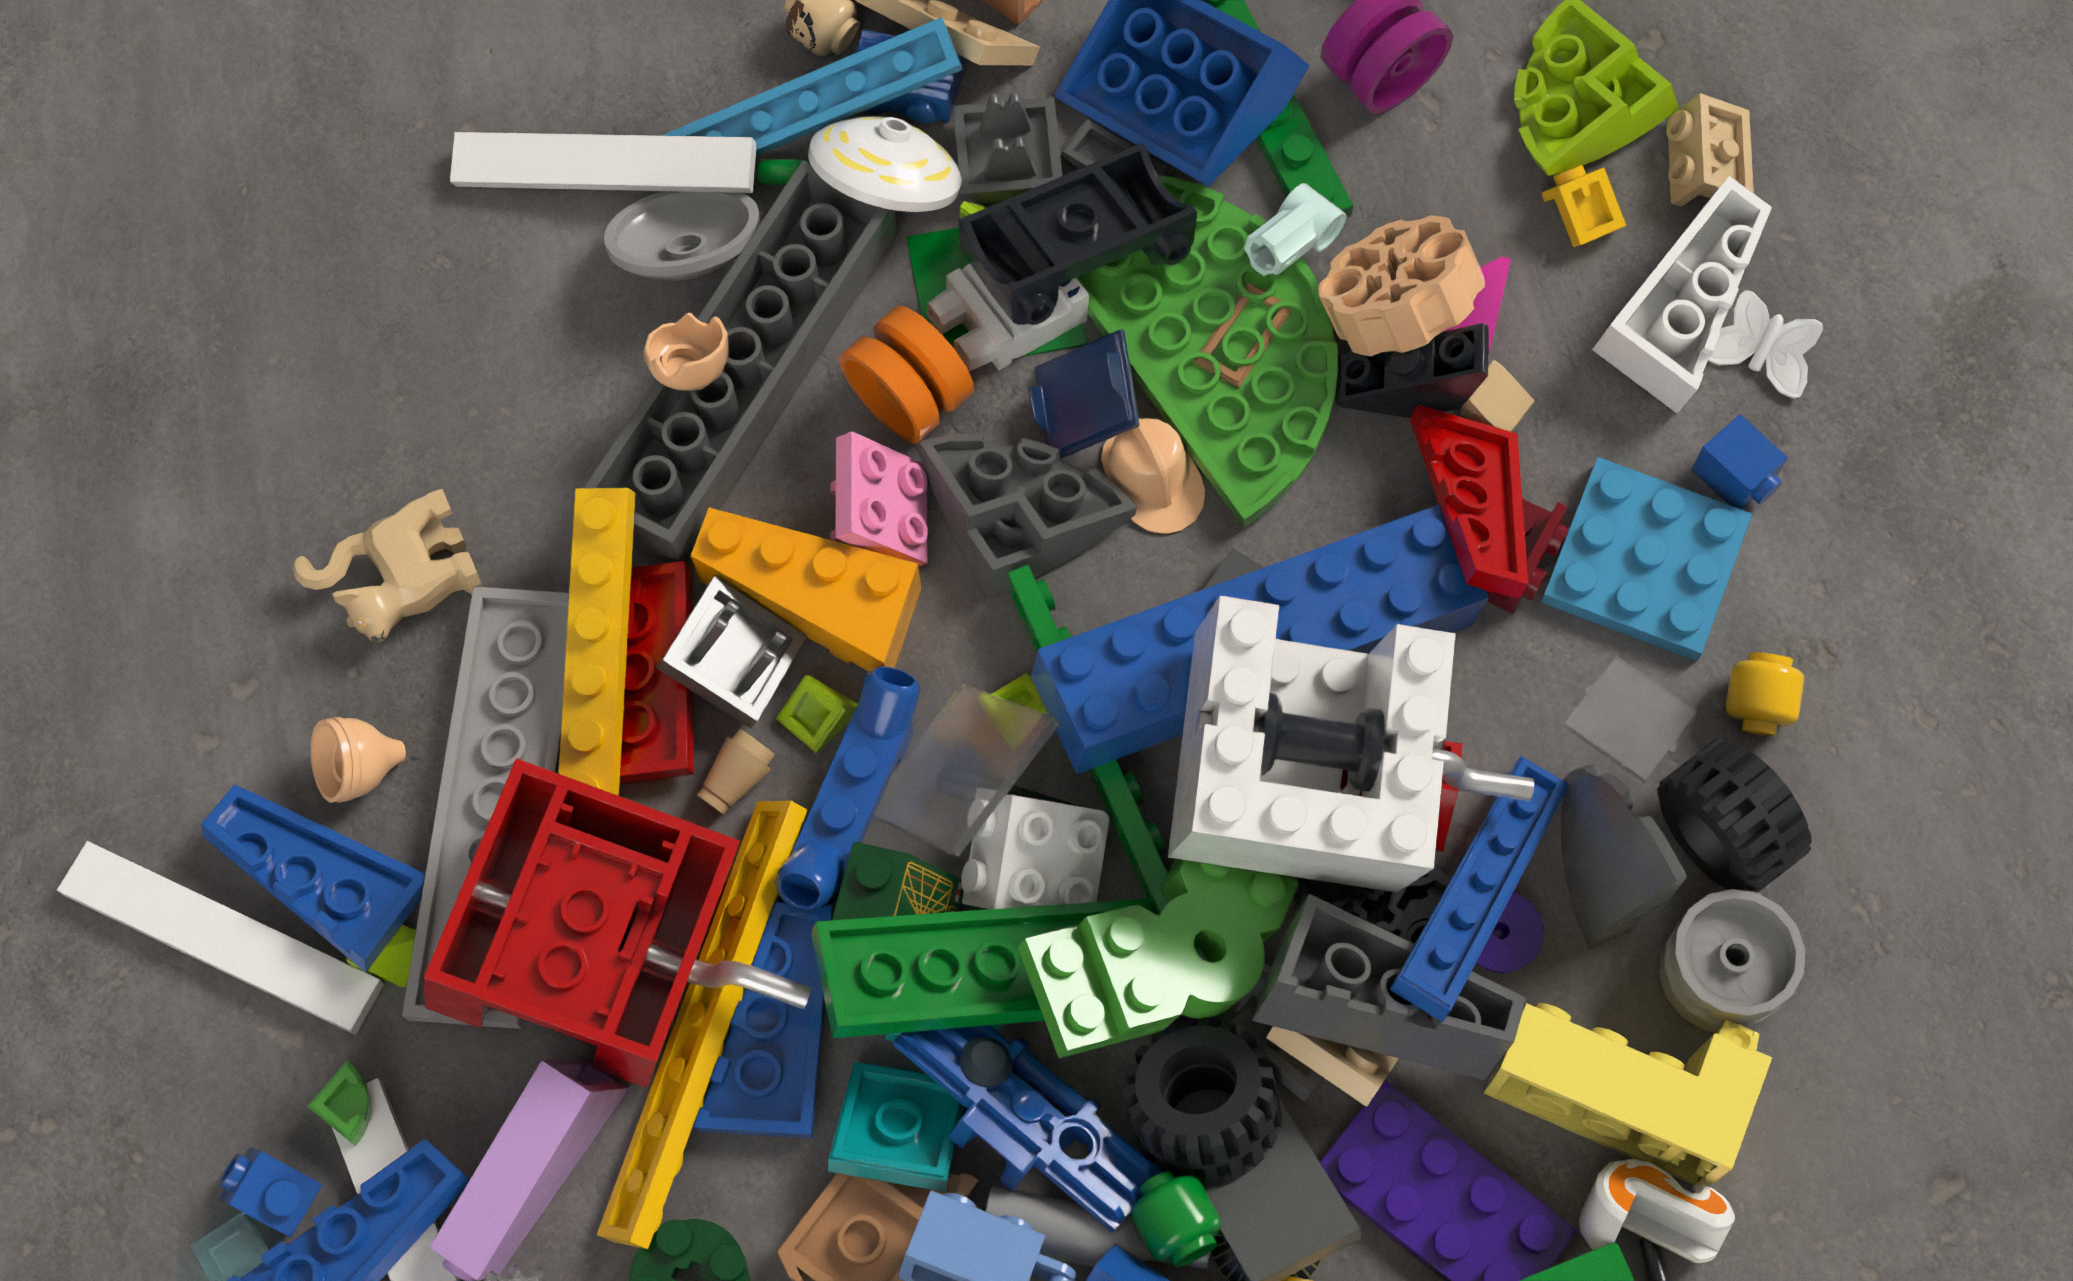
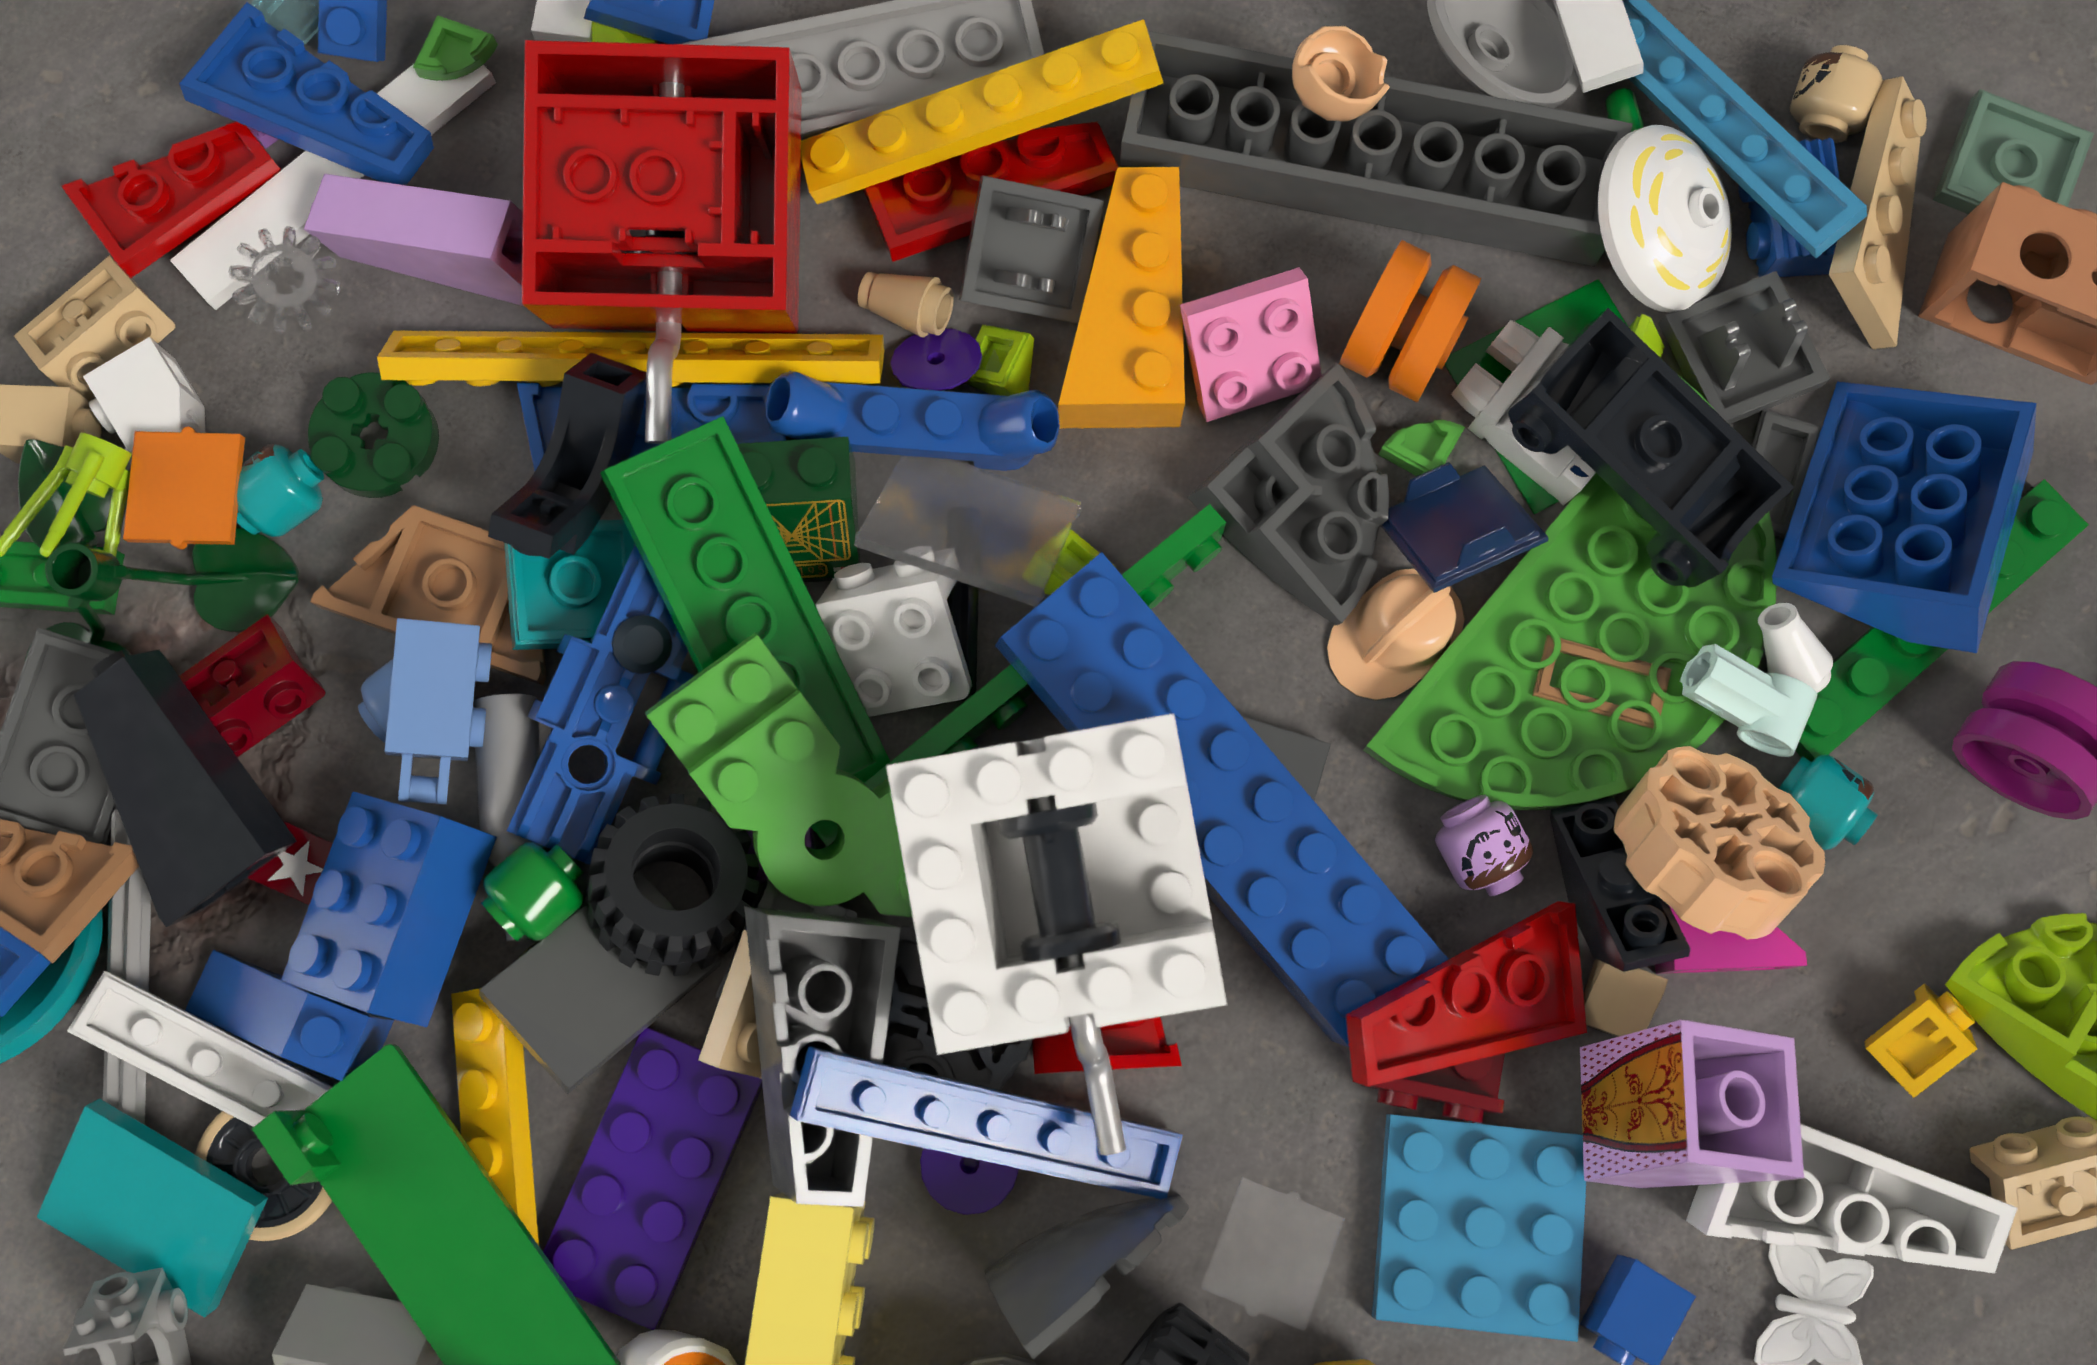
camera: 70 degrees right, 10 degrees up
(796, 1075) = (591, 433): none -> black arch
(800, 762) = (936, 360): none -> dark purple piece
(1005, 406) = (1422, 445): none -> bright green tile
(1261, 190) = (1793, 647): none -> white cone
(1349, 459) = (1484, 845): none -> lavender head
(1383, 202) = (1832, 798): none -> teal head
(1599, 371) = (1690, 1107): none -> lavender slope

